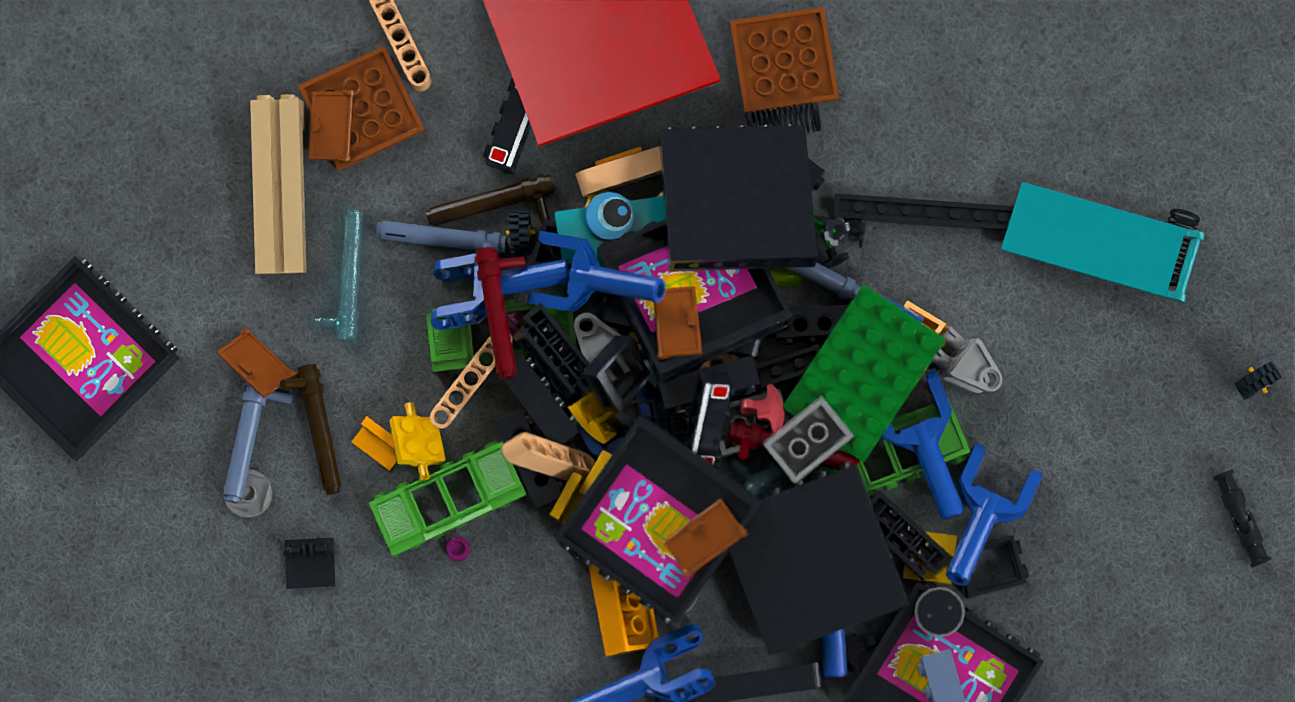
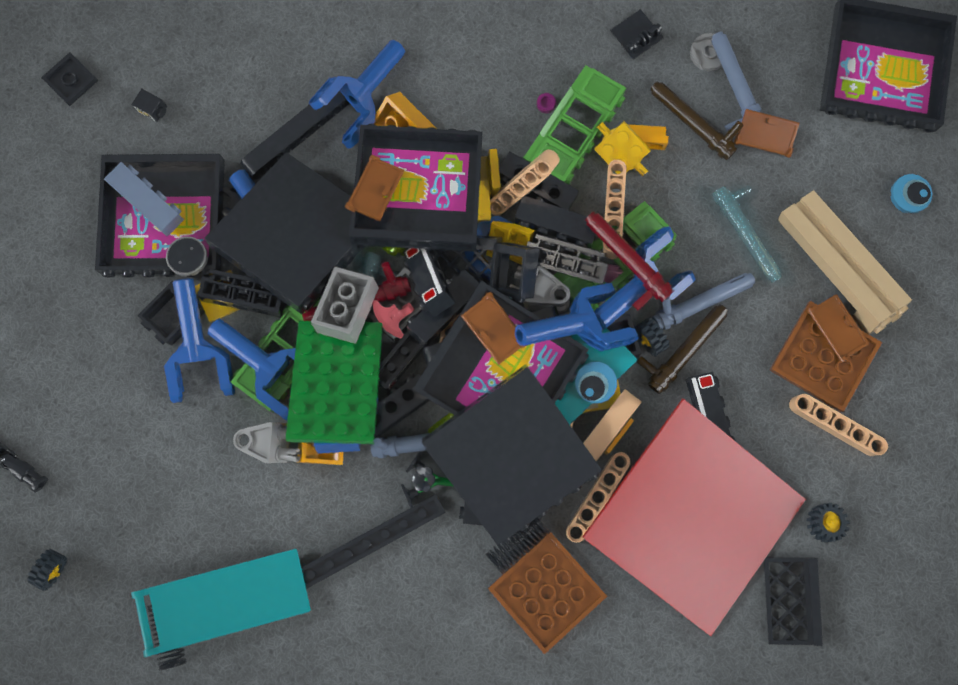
camera: 145 degrees right, 0 degrees up
(154, 212) = (911, 193): none -> tile
(684, 106) = (606, 491): none -> light nougat beam

